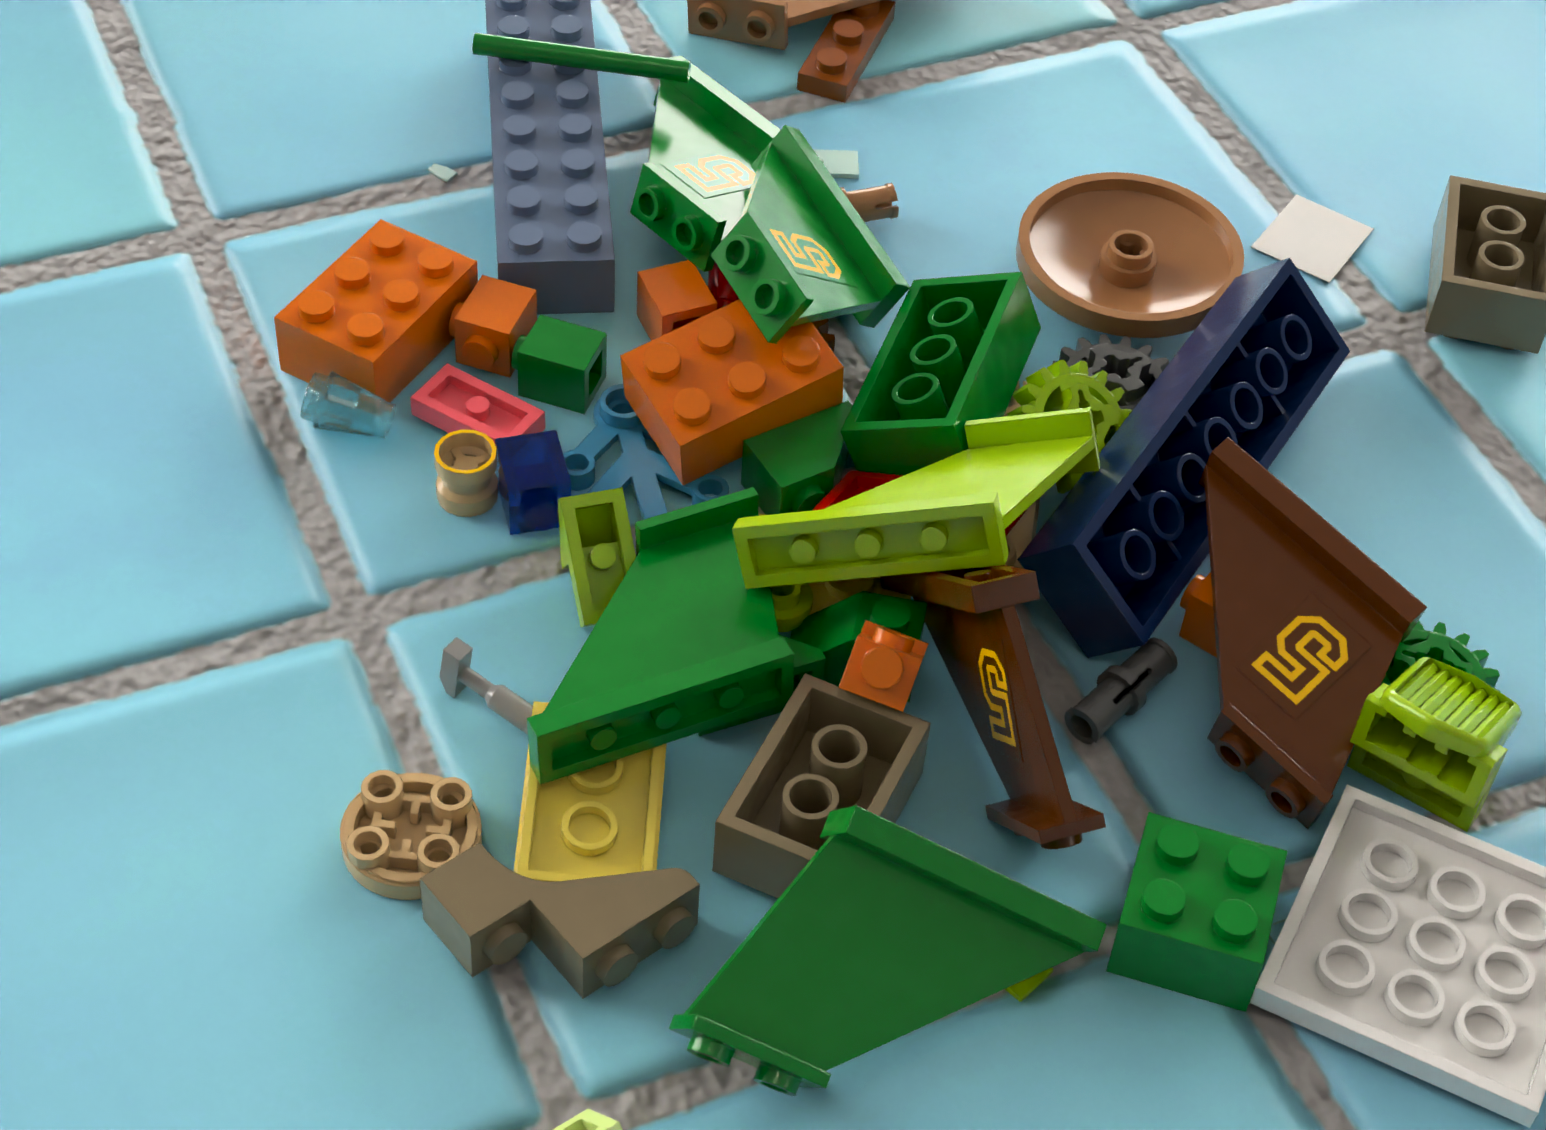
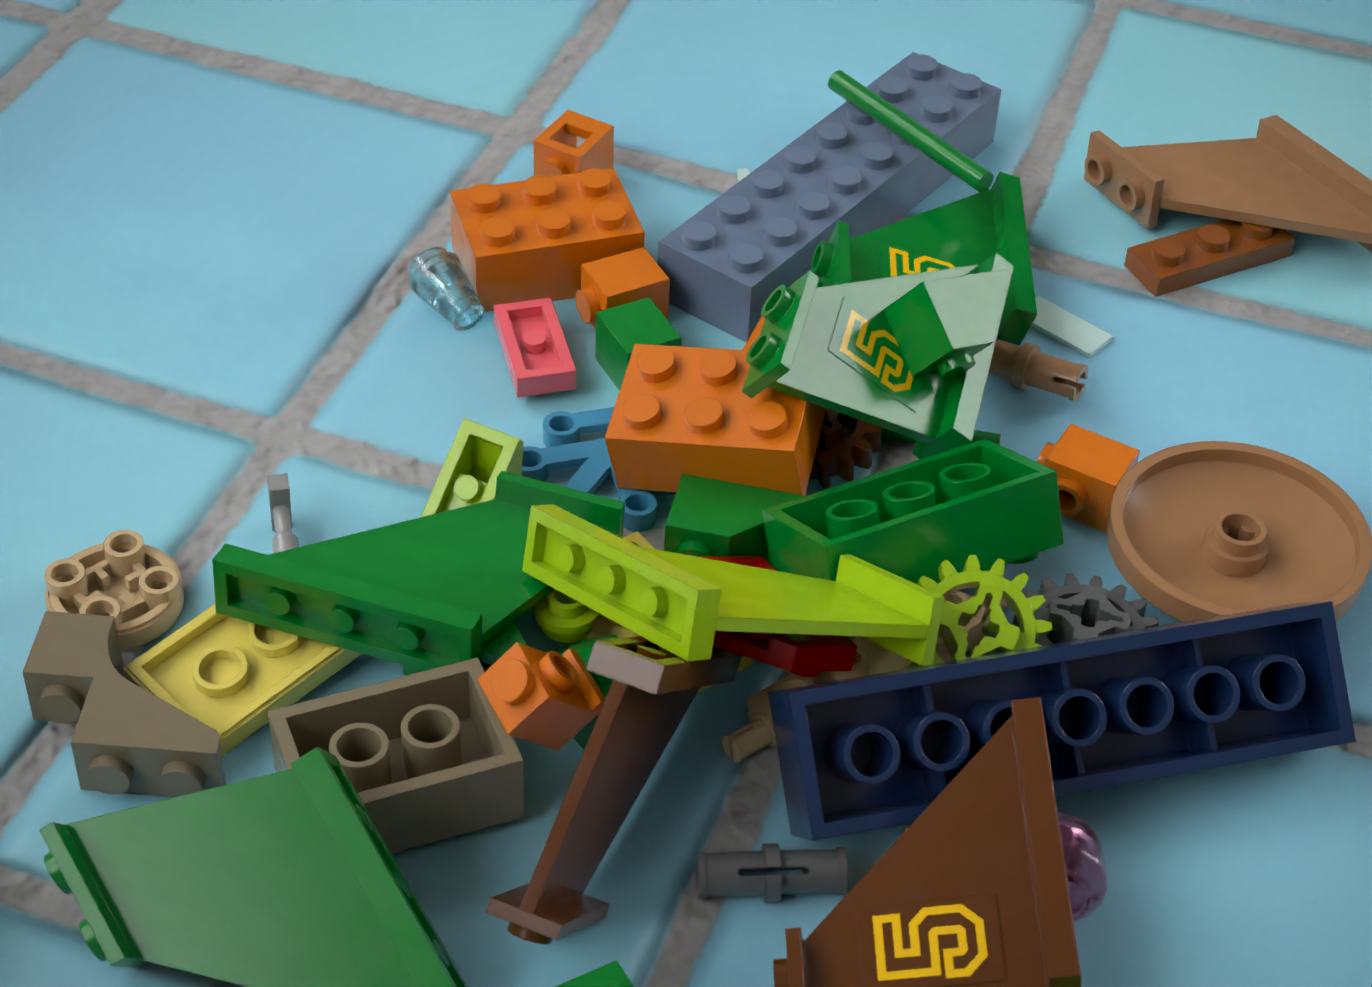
camera: 45 degrees right, 5 degrees down
(302, 242) = (557, 148): none -> orange brick
(466, 472) = (463, 387): tan wheel -> none
(531, 480) = (508, 402): clear blue brick -> none
(828, 200) = (948, 321): none -> green slope
(979, 253) = (1087, 473): none -> orange brick

